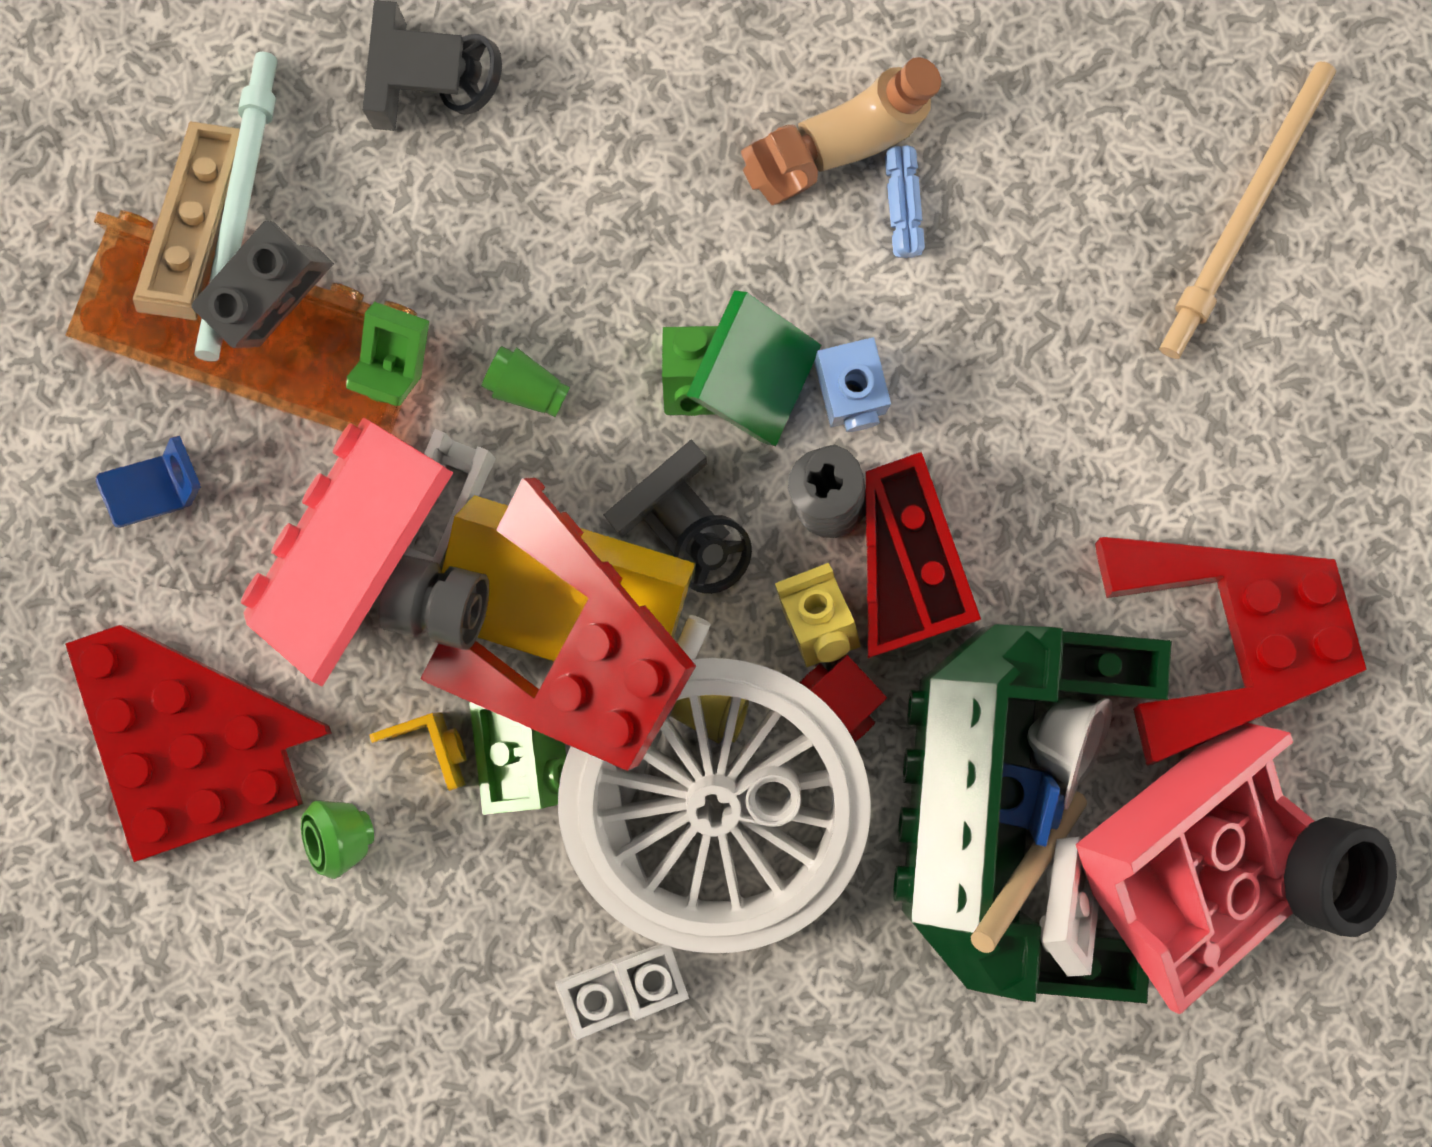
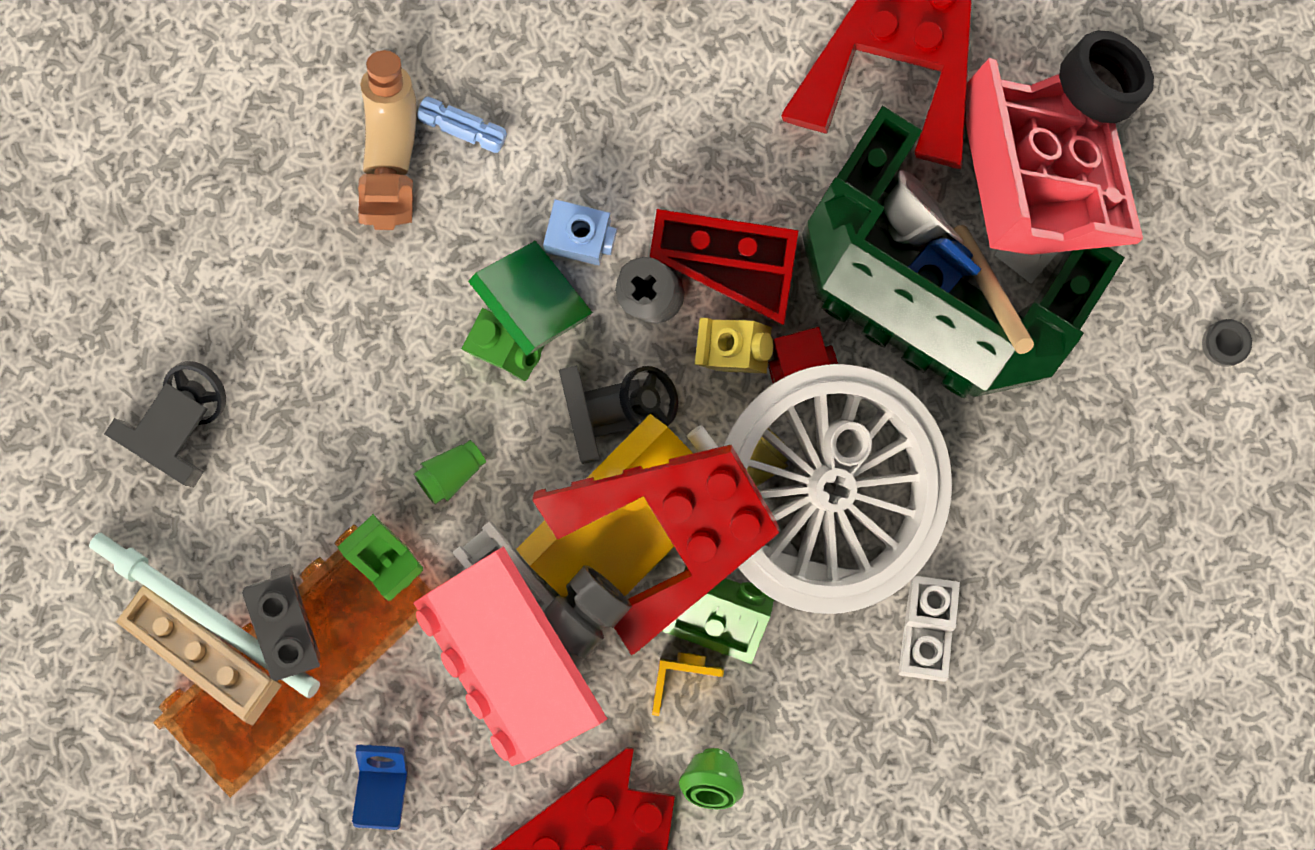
camera: 70 degrees left, 0 degrees up
(1071, 912) = (1035, 275): white plate -> none

